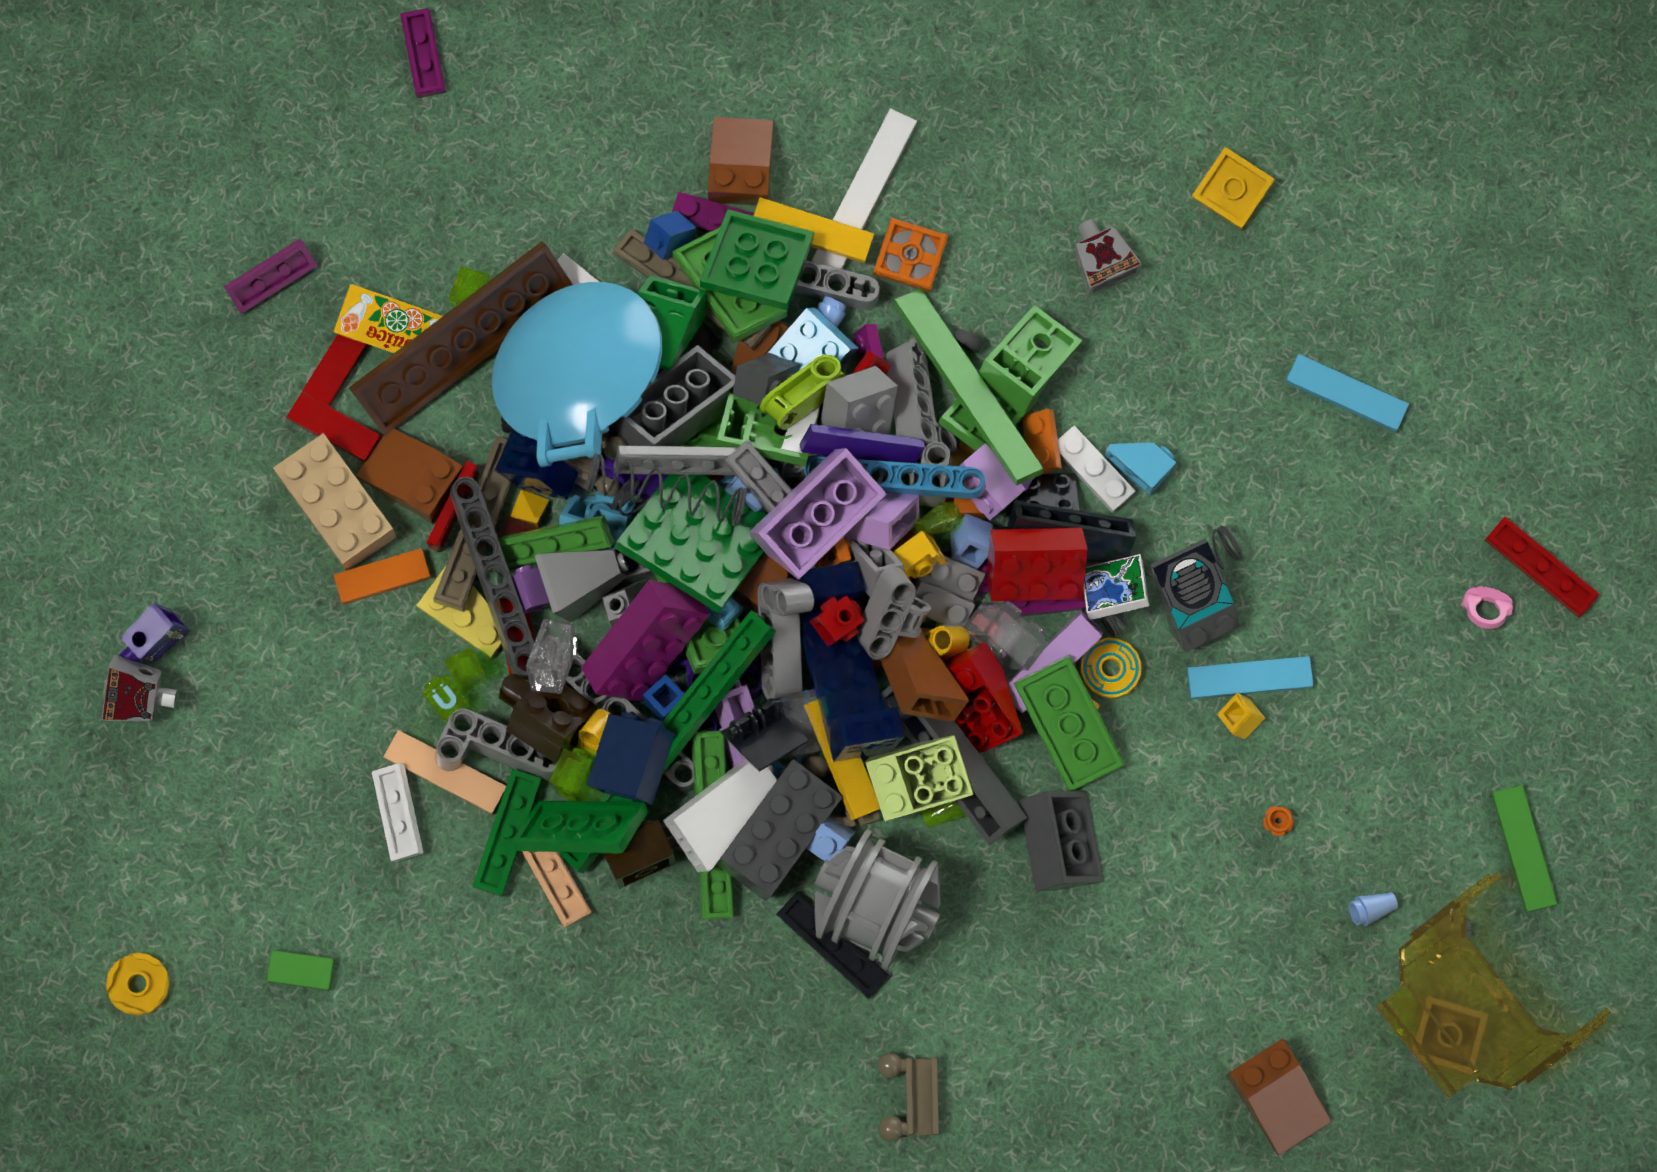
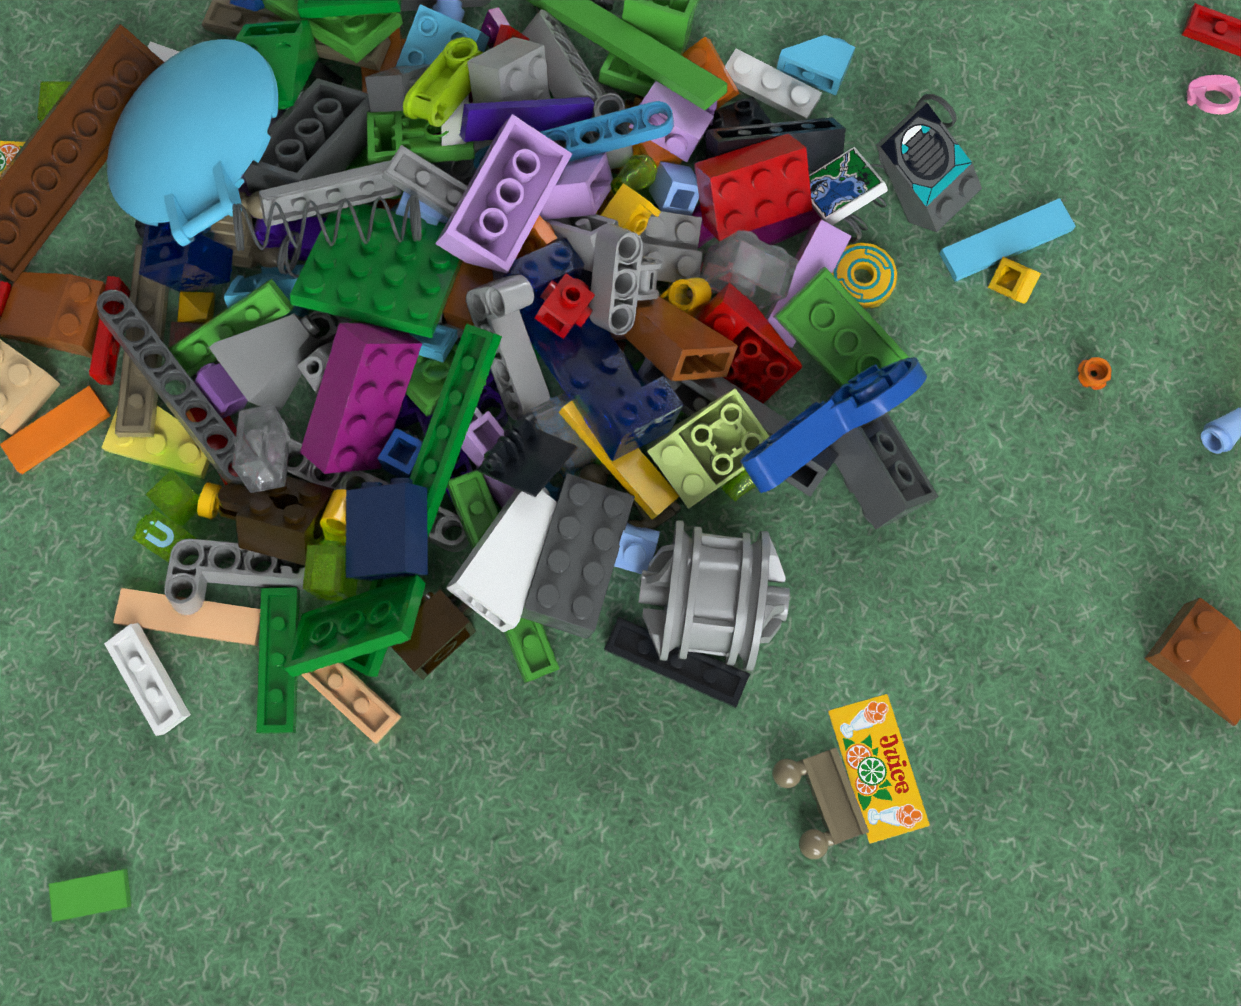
camera: 20 degrees left, 0 degrees up
(492, 681) = (208, 501): none -> yellow tile
(968, 1088) = (878, 768): none -> sticker
(1011, 790) = (823, 423): none -> blue beam

